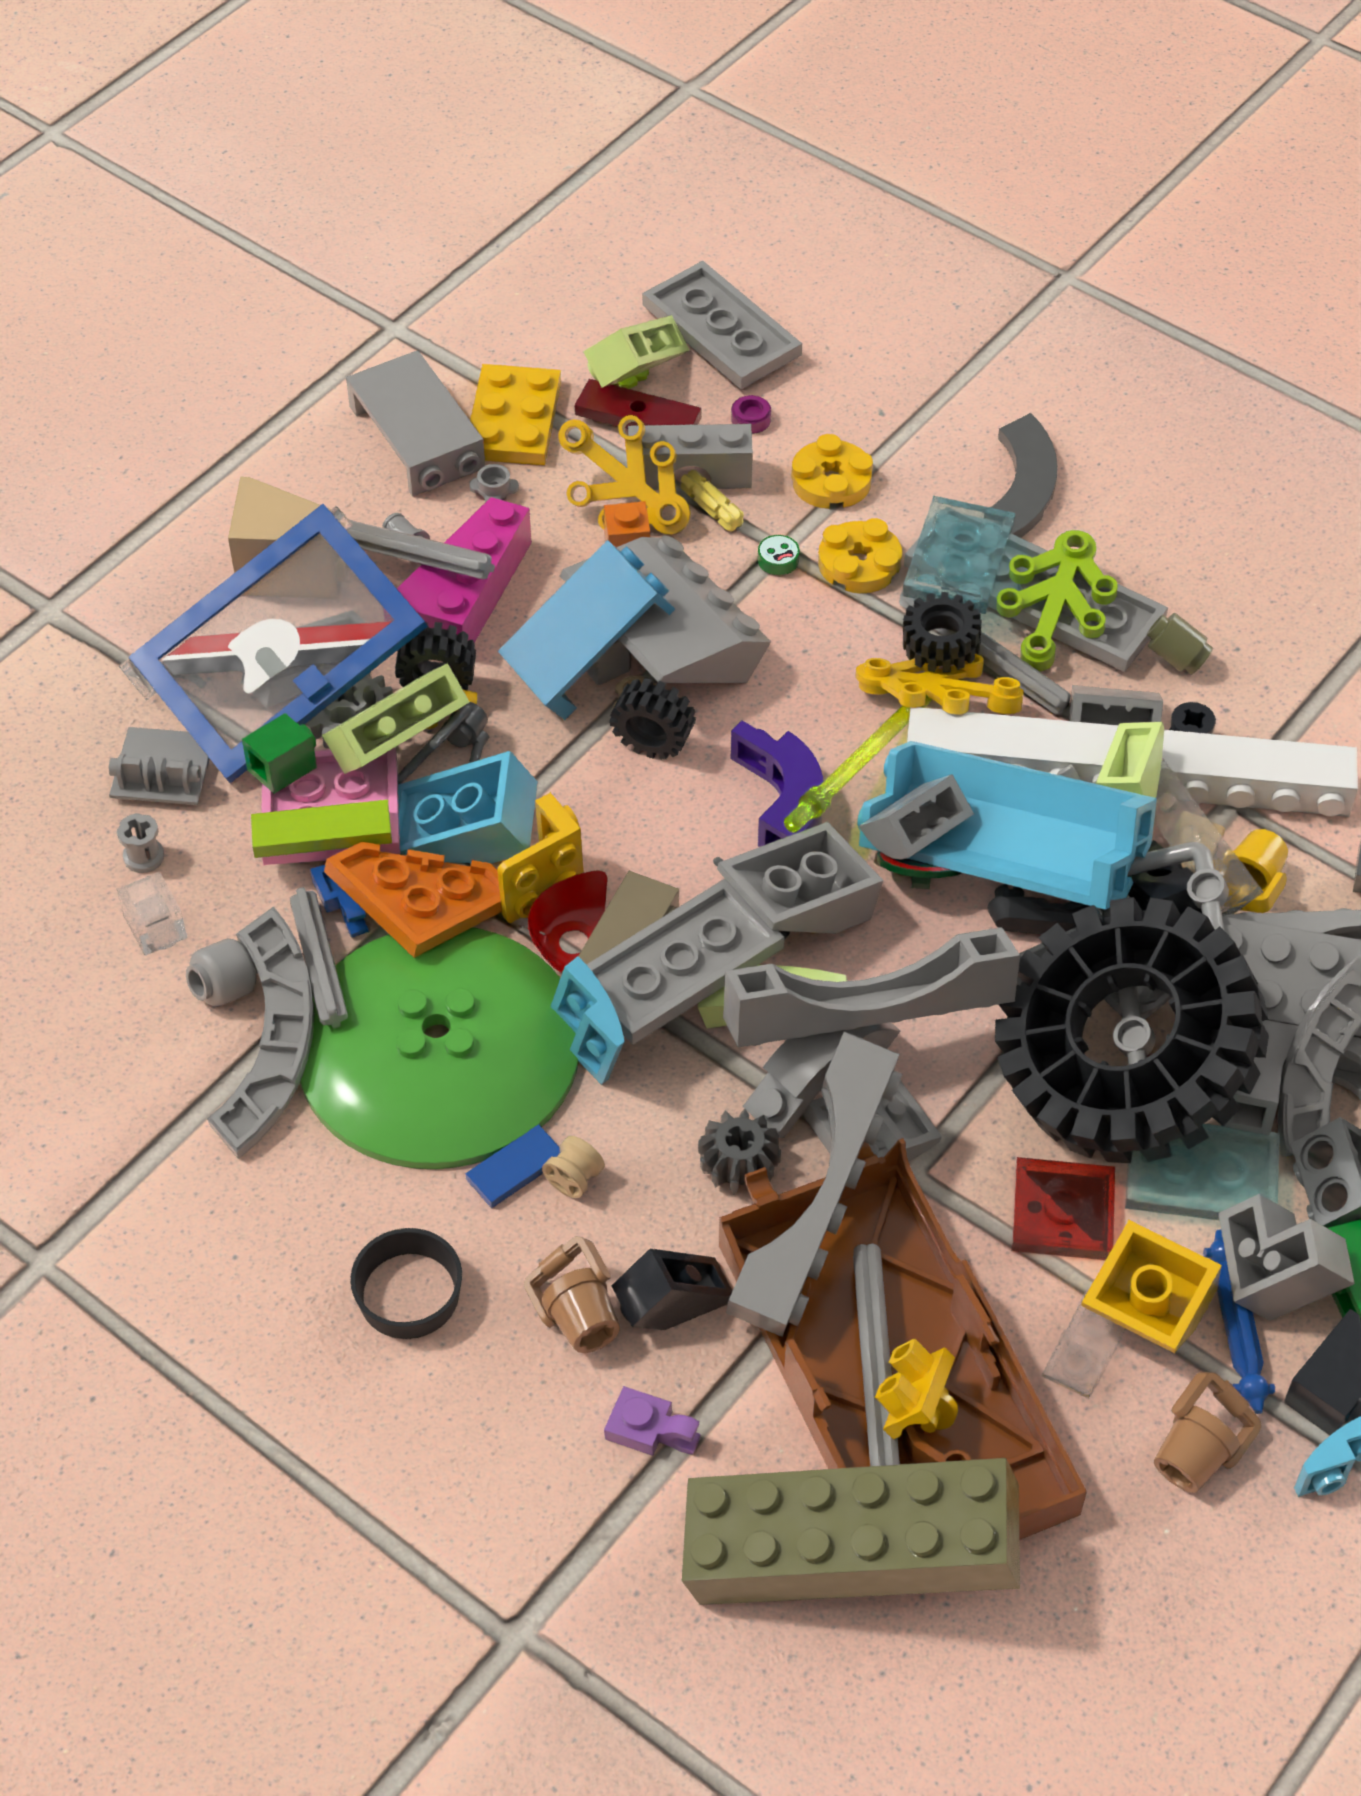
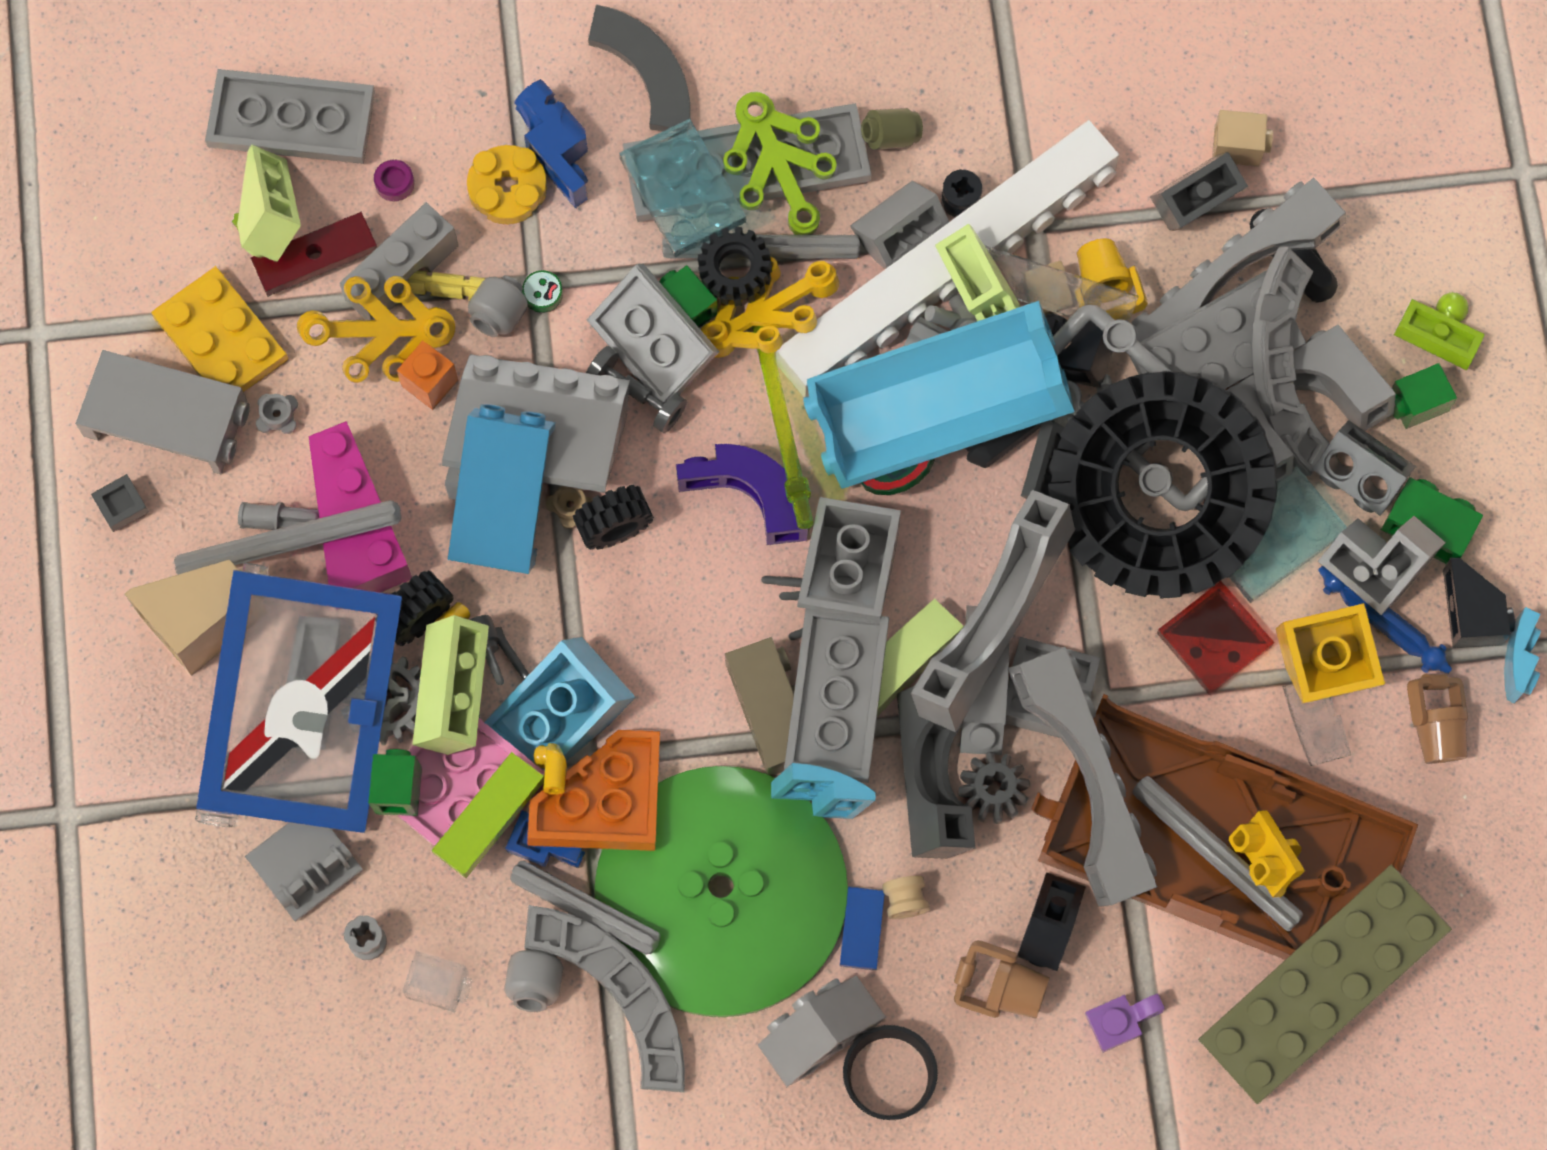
camera: 45 degrees left, 20 degrees up
(320, 453) = (119, 503): none -> dark grey plate
(391, 1188) = (819, 1028): none -> light grey brick
(410, 833) = (555, 767): none -> yellow arm
(543, 864) = (660, 674): yellow bracket -> none
(565, 907) = (706, 707): red piece -> none
(678, 1112) = (937, 819): none -> dark grey arch
(731, 532) = (497, 306): none -> light grey head
(779, 693) = (668, 412): none -> dark grey wheel
(825, 633) = (652, 334): none -> light grey tile
(861, 537) = (596, 219): yellow plate -> none
(880, 631) = (691, 295): none -> green brick
(901, 464) = (555, 139): none -> blue plate
(918, 818) = (873, 440): light grey brick -> none

